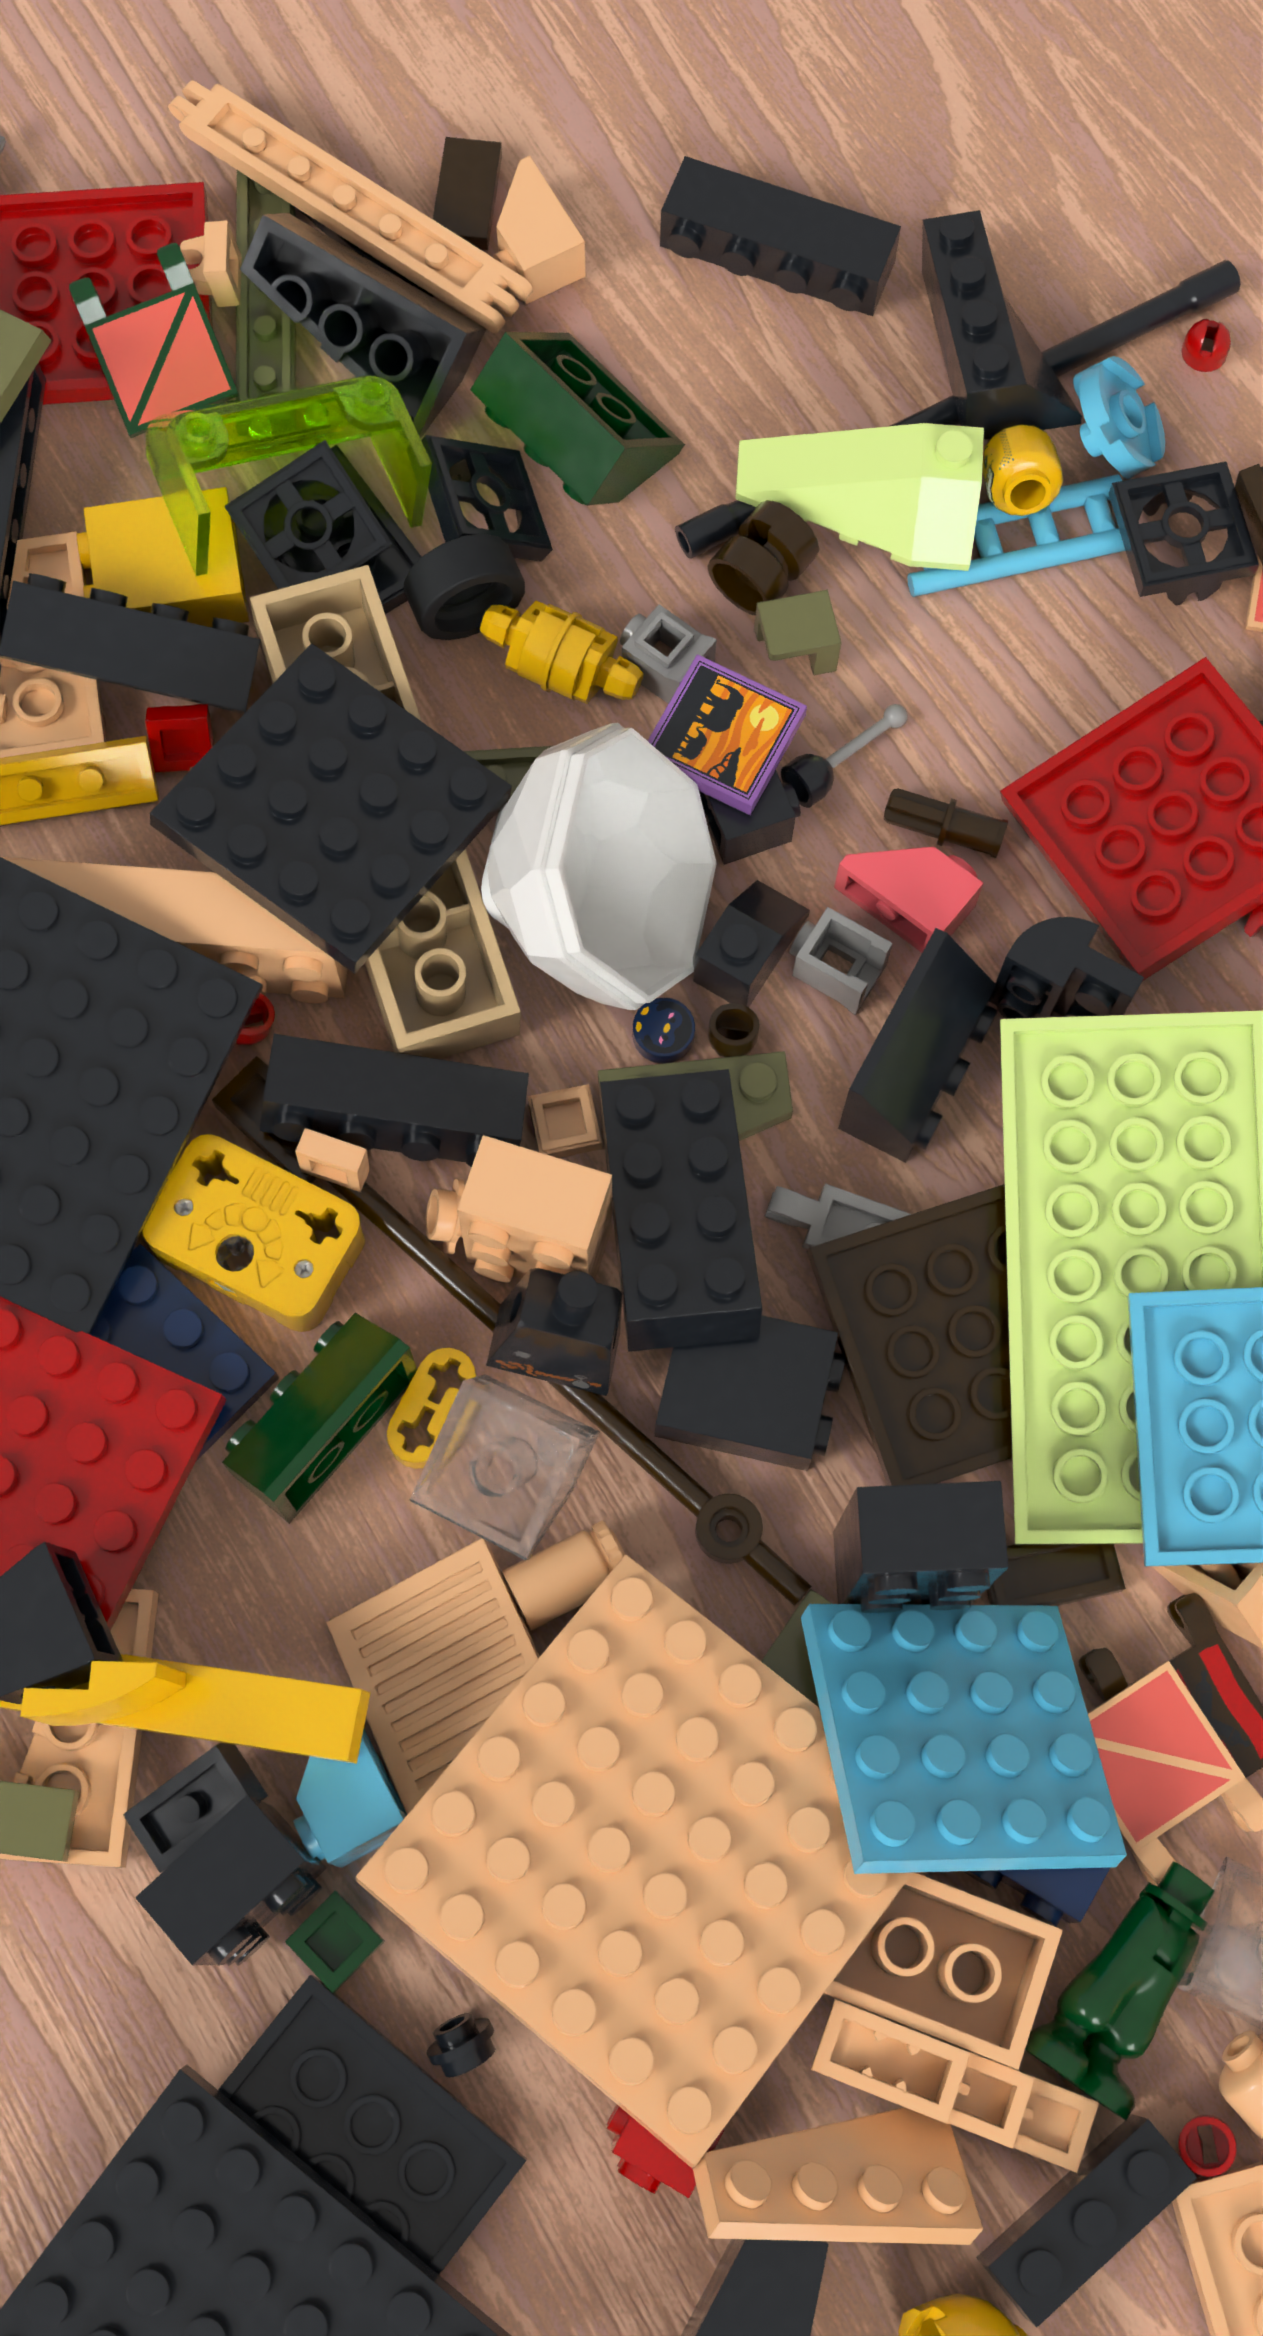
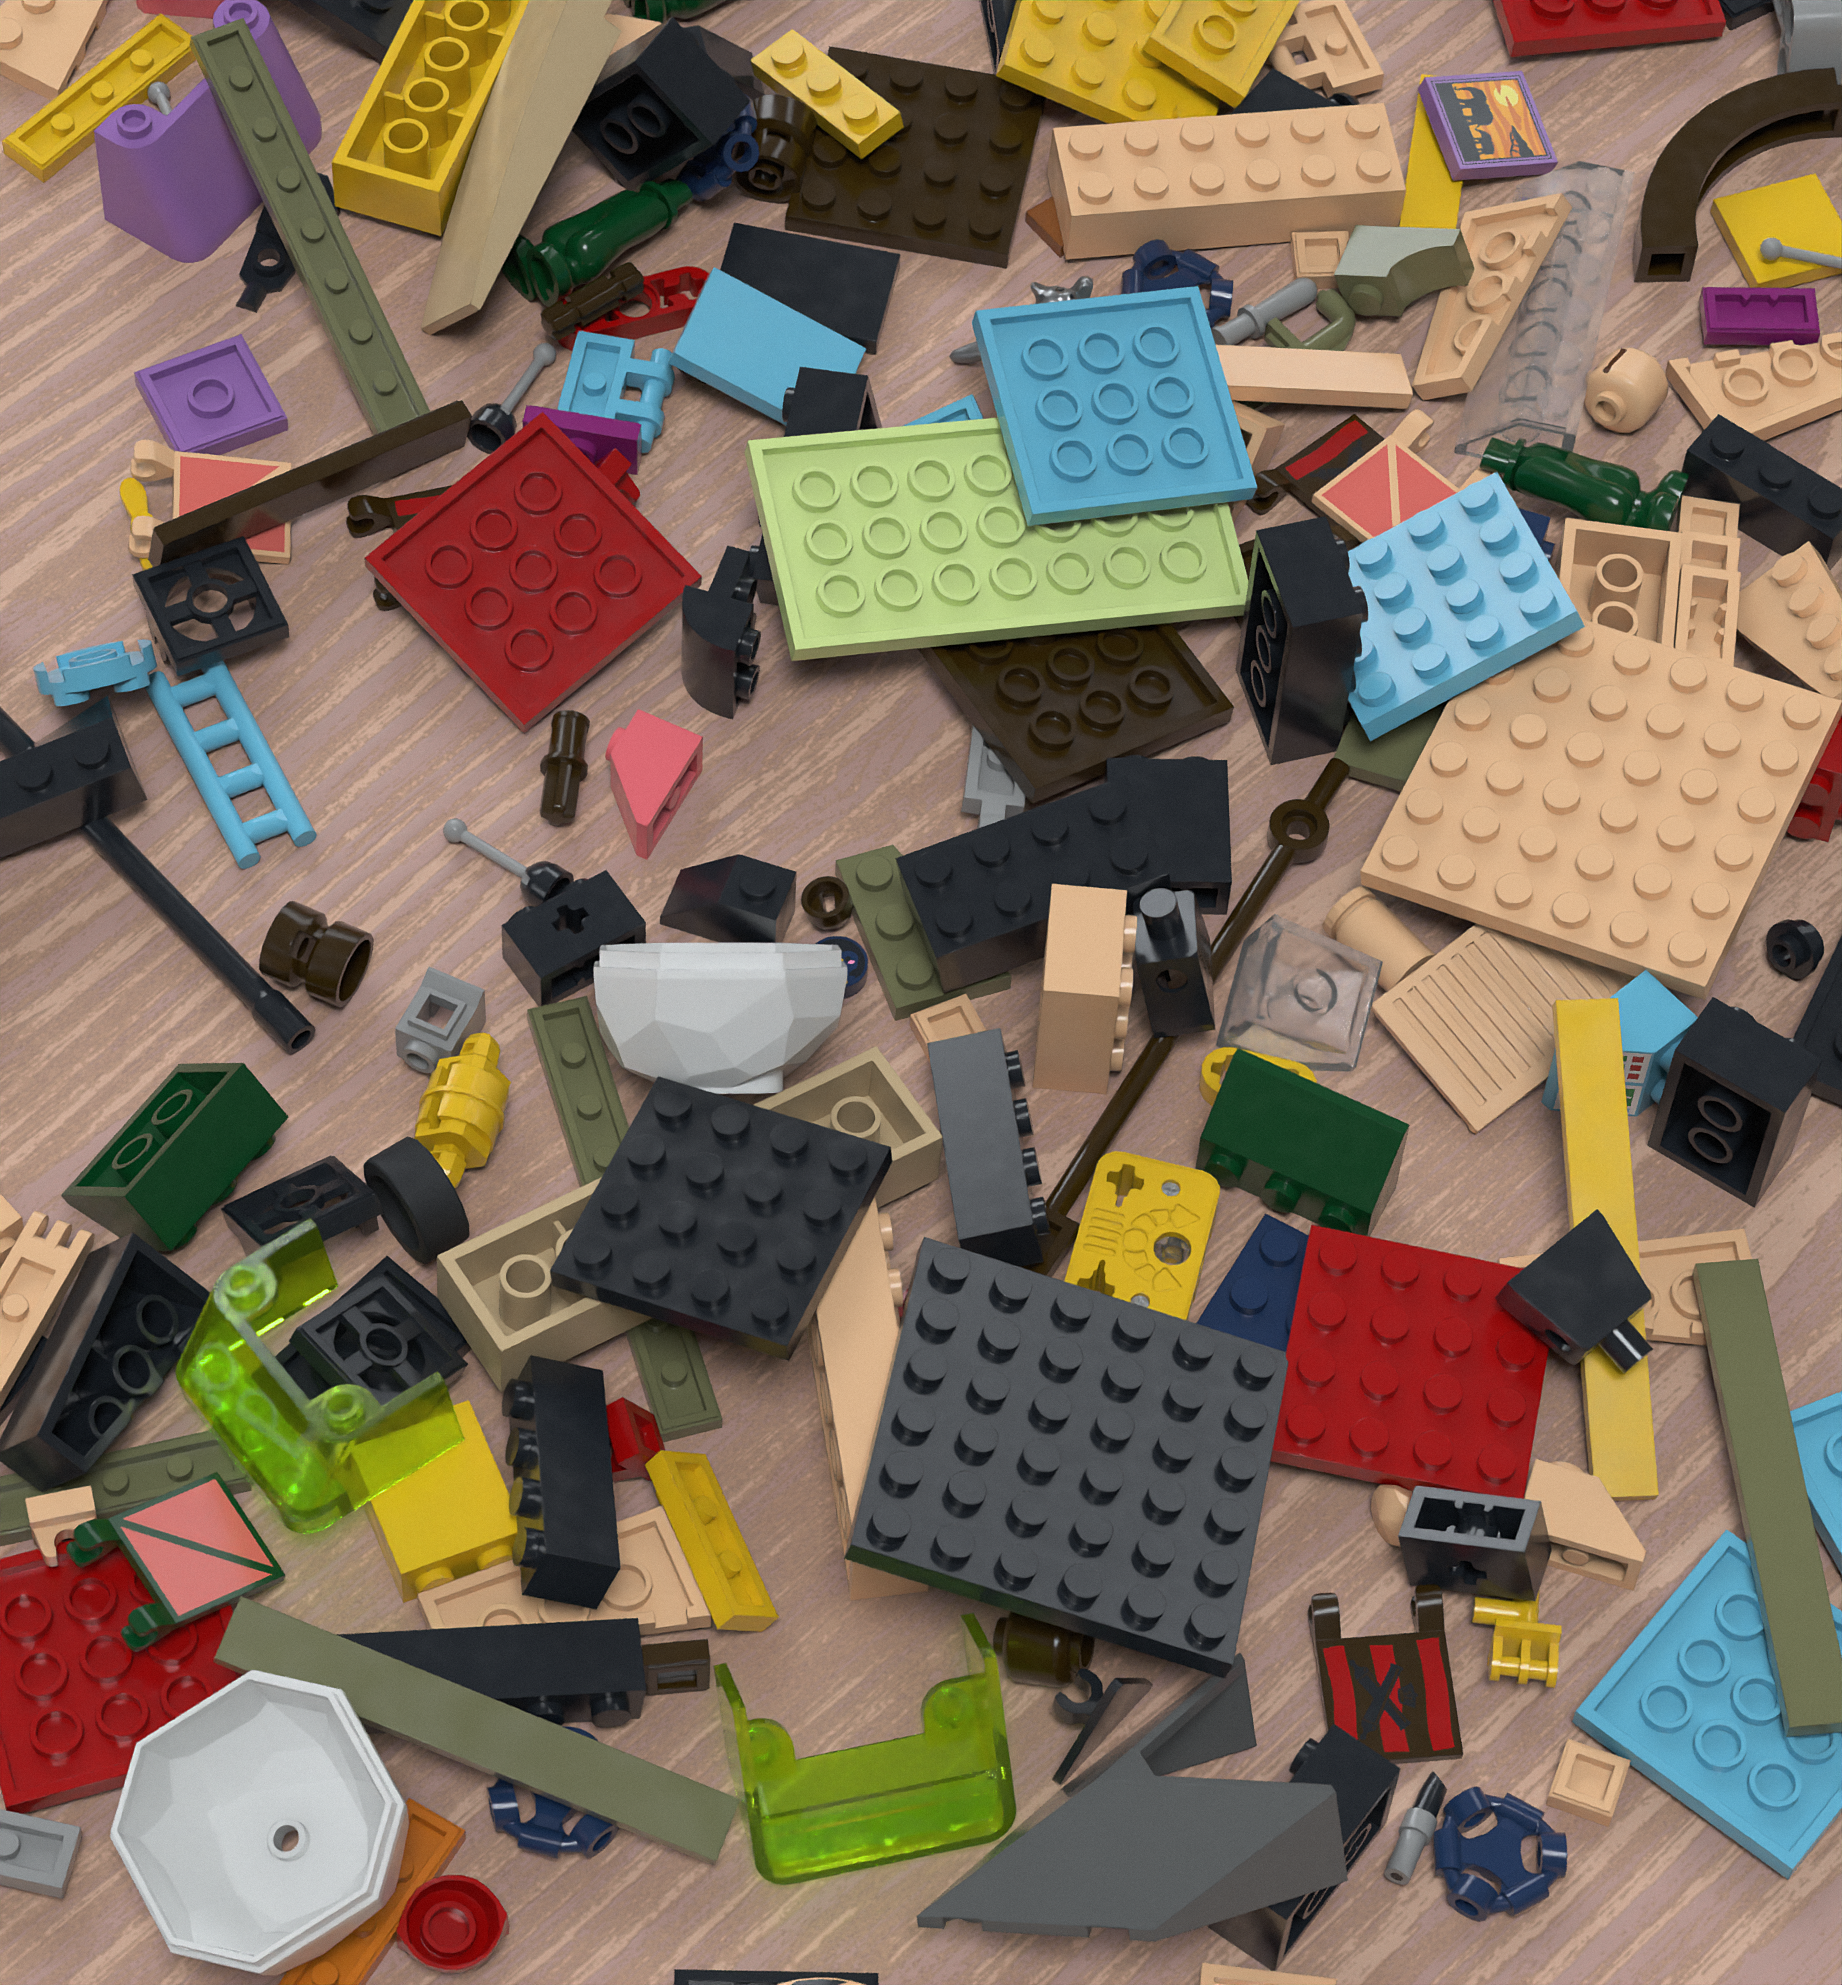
camera: 105 degrees left, 15 degrees down
(113, 1692) = (1610, 1193): yellow slope -> none
(192, 1803) = (1678, 1166): black plate -> none
(332, 1160) = (1061, 1181): light nougat tile -> none
(442, 1216) = (1077, 1095): light nougat plate -> none
(727, 732) = (539, 935): tile -> none
(800, 628) = (390, 908): olive panel -> none
(848, 940) = (730, 828): light grey window -> none
(883, 486) = (226, 855): yellowish green wedge -> none
(920, 1050) = (813, 750): black slope -> none
(1021, 470) = (176, 741): yellow head -> none
(1191, 2146) = (1679, 420): red hinge -> none

